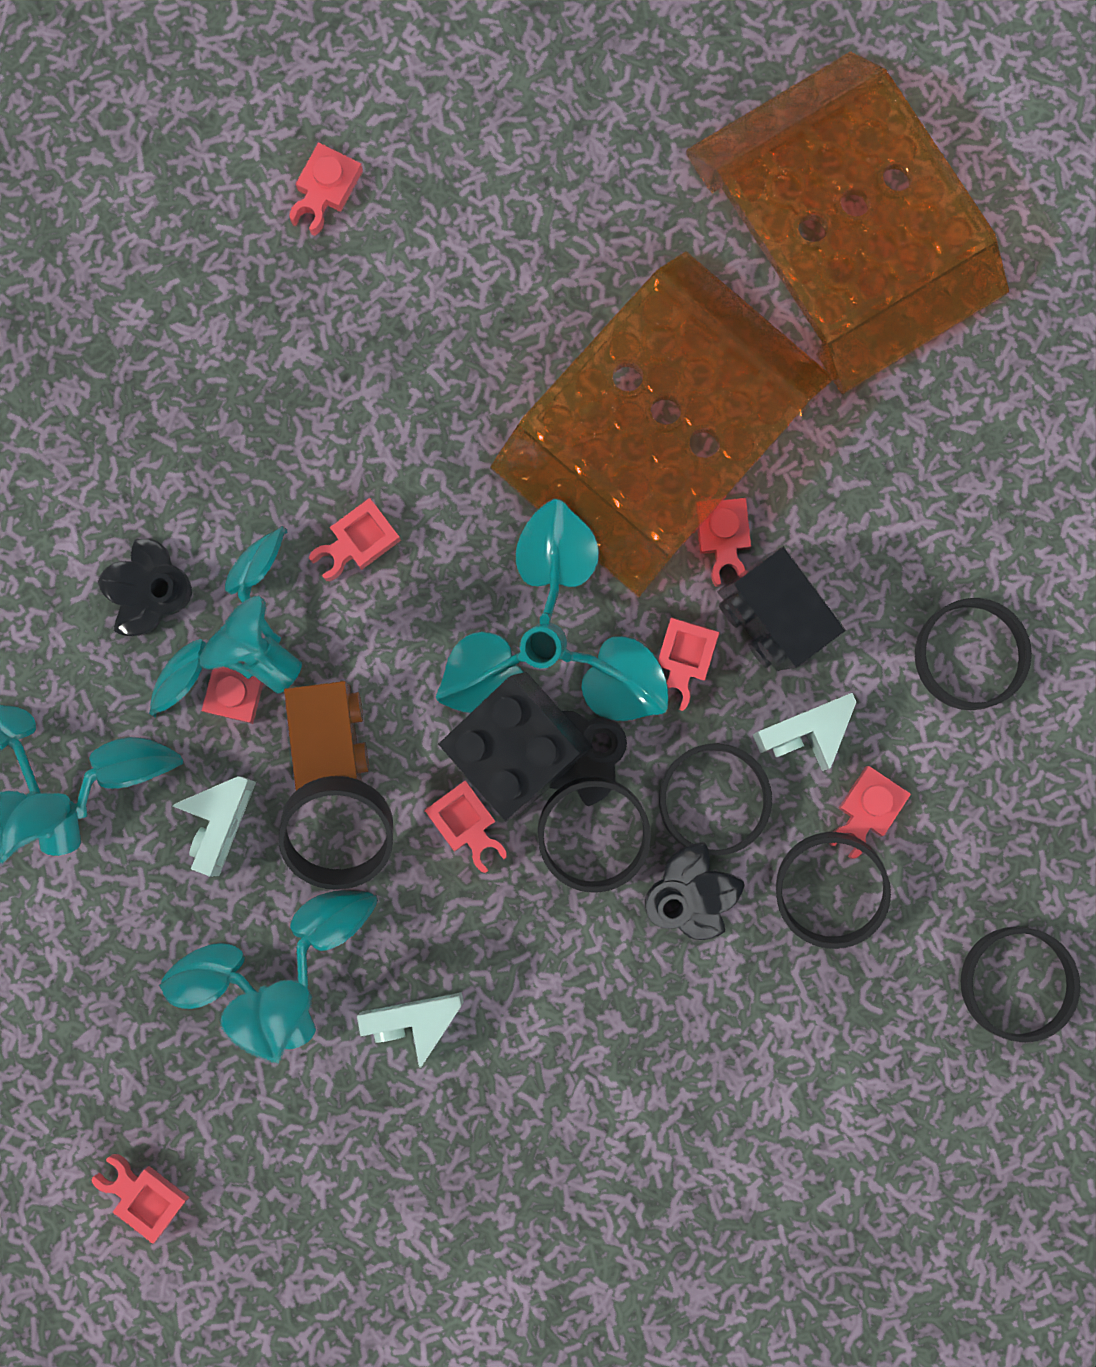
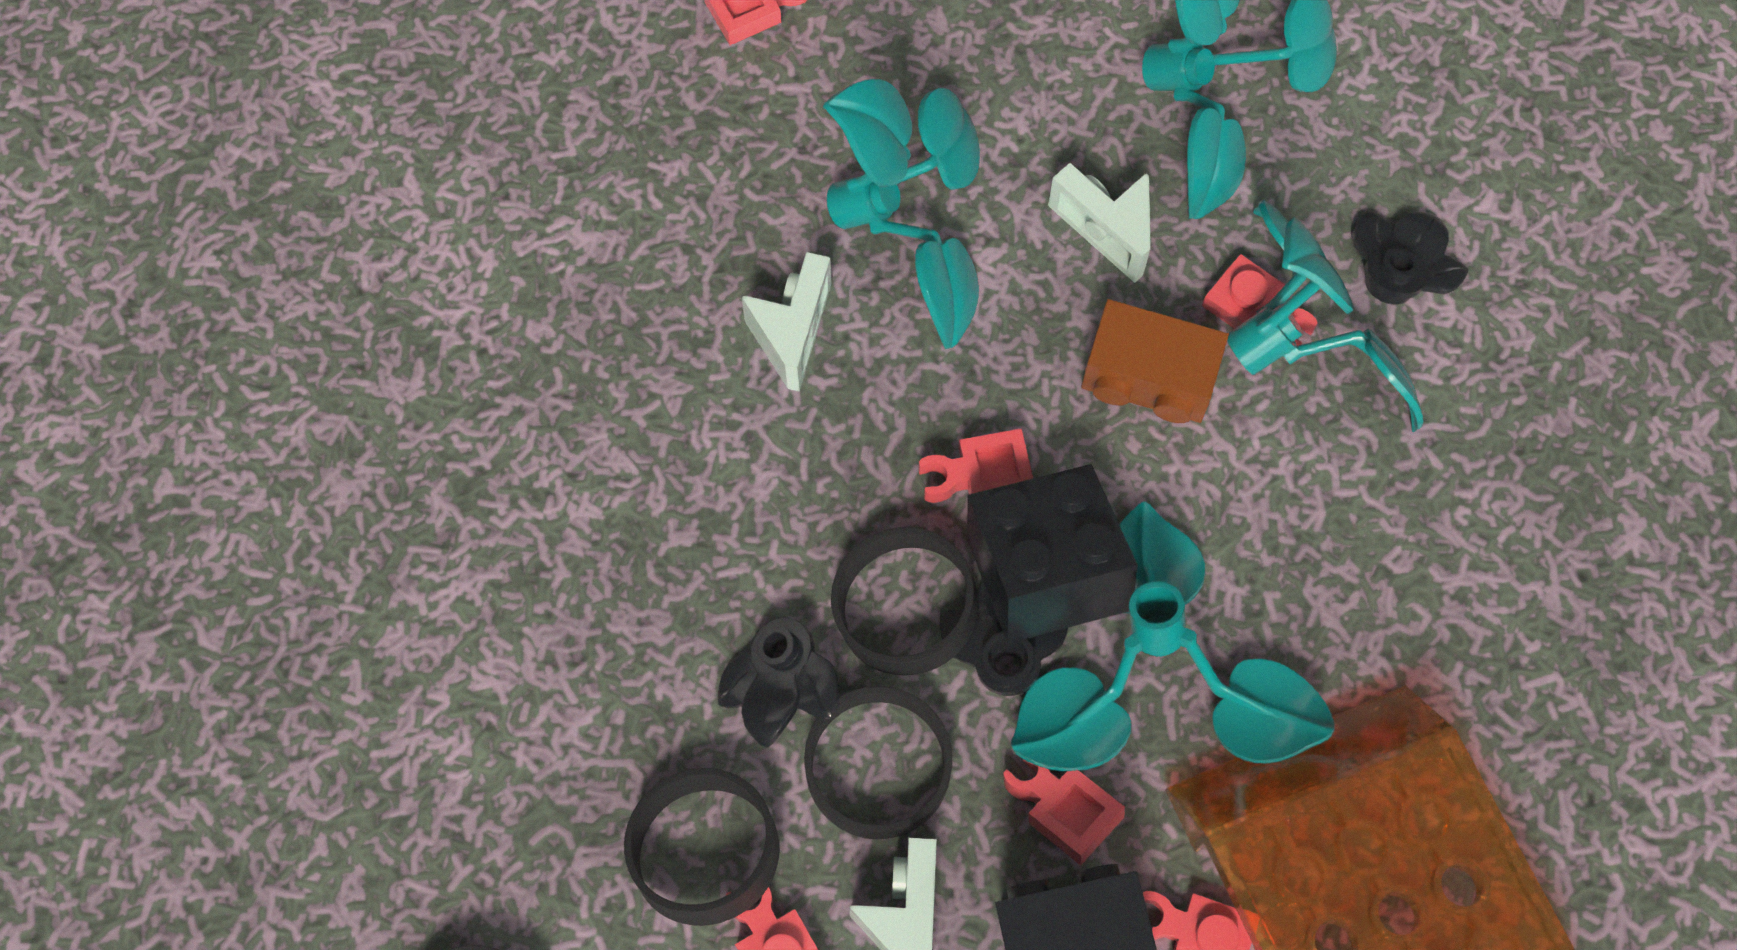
camera: 115 degrees right, 15 degrees down
(336, 878) = (1012, 285): black tyre -> none
(361, 536) = (1373, 501): coral plate -> none

